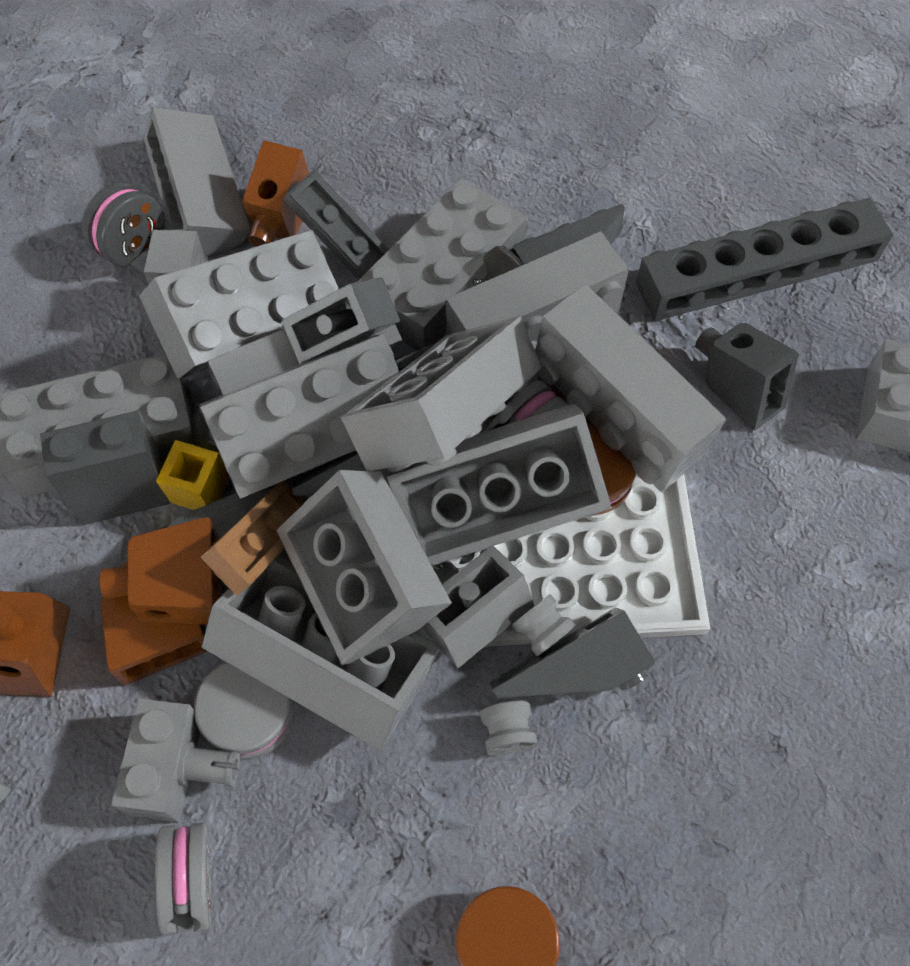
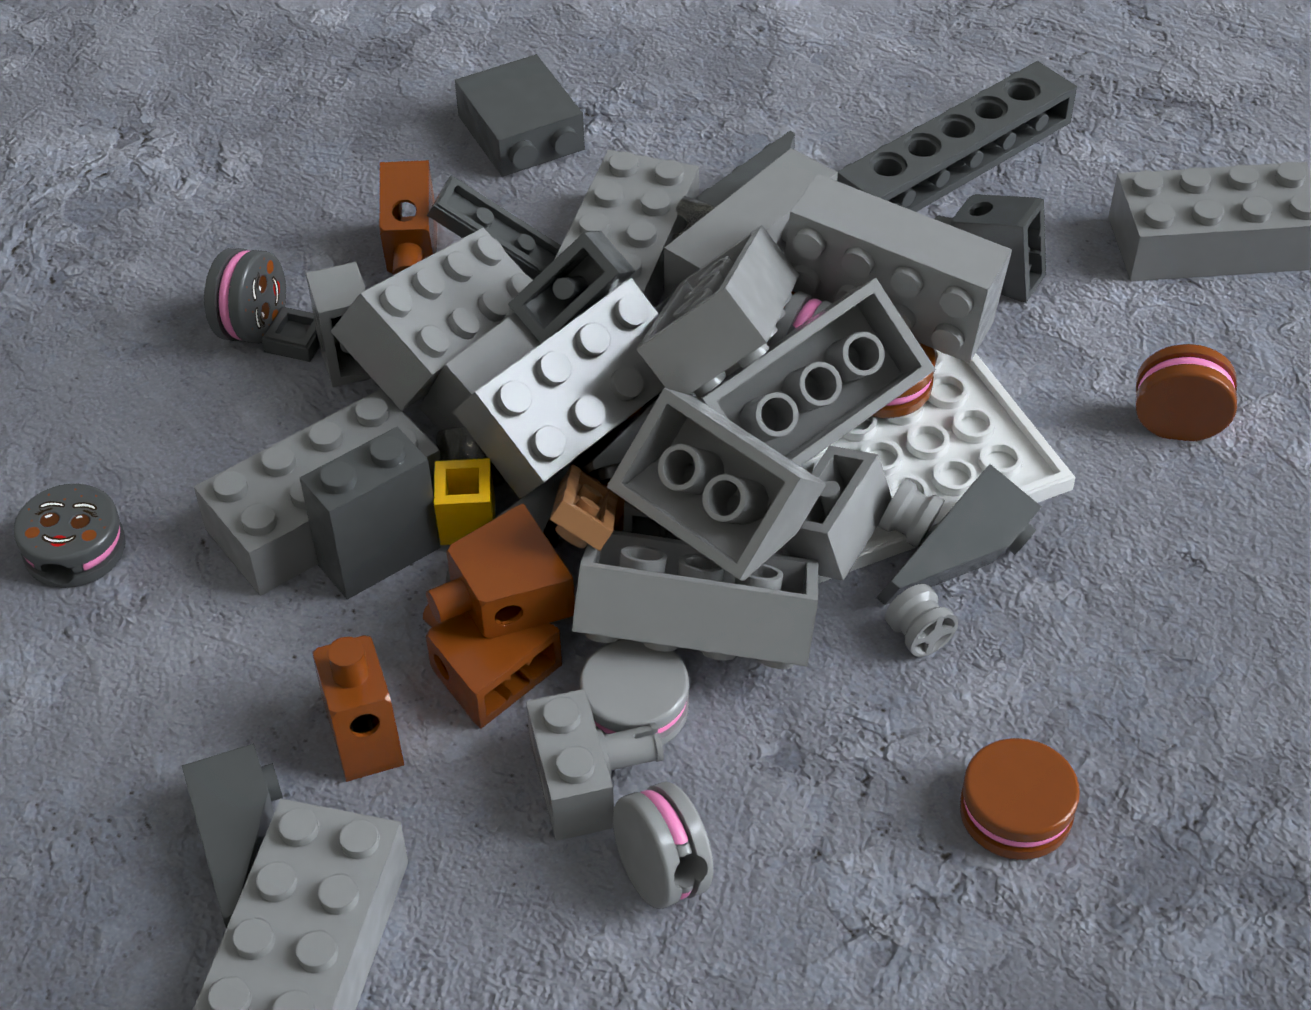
camera: 20 degrees left, 15 degrees down
(195, 178) = (280, 217): light grey brick -> none
(418, 117) = (520, 115): none -> dark grey brick
(845, 585) = (1186, 392): none -> dark orange head

